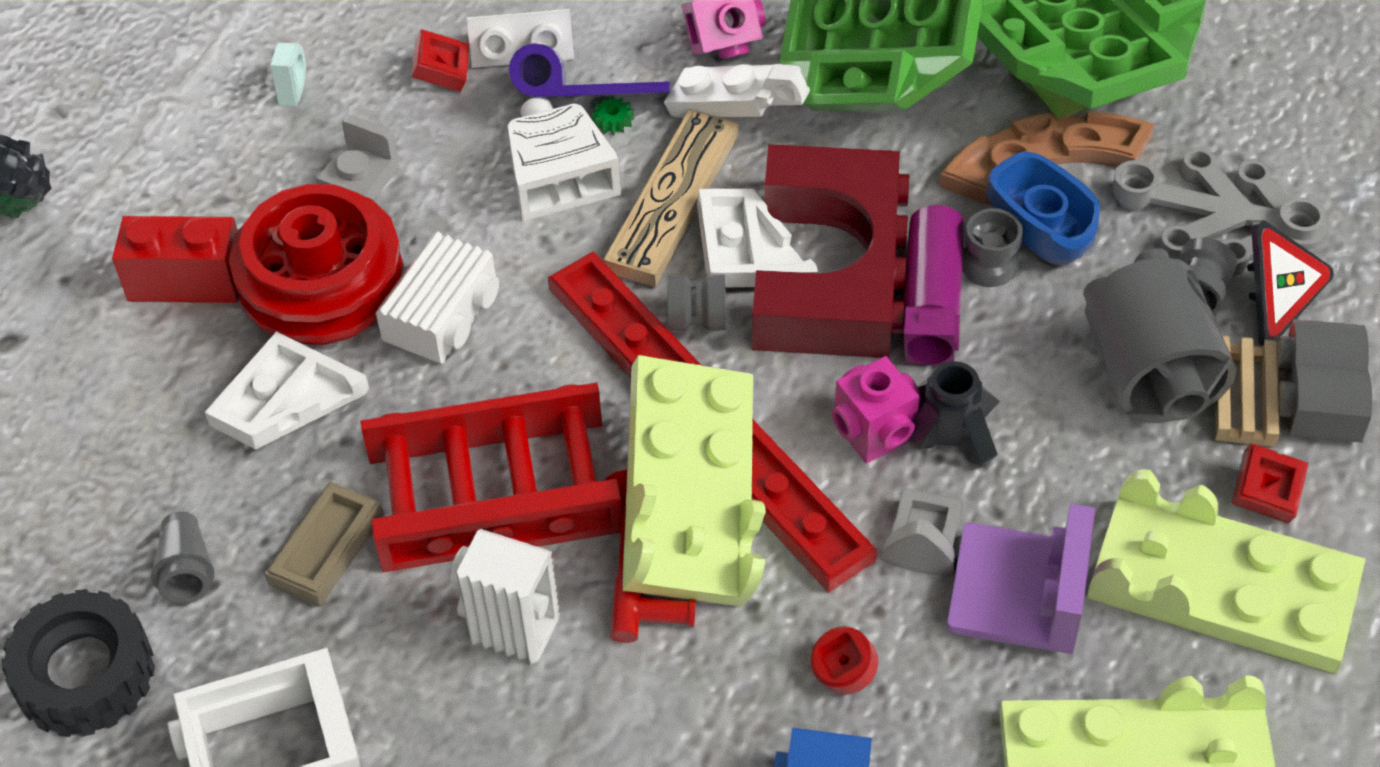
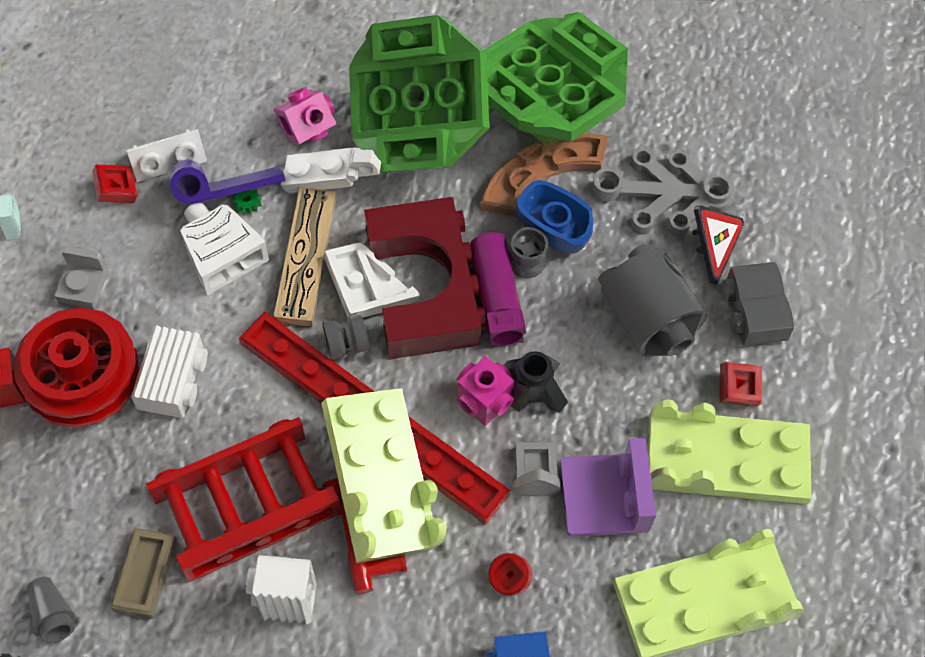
camera: 20 degrees left, 10 degrees up
(283, 391) = (80, 468): white wing -> none
(1213, 265) = (670, 237): dark grey wheel -> none
(1247, 355) = (731, 348): tan tile -> none

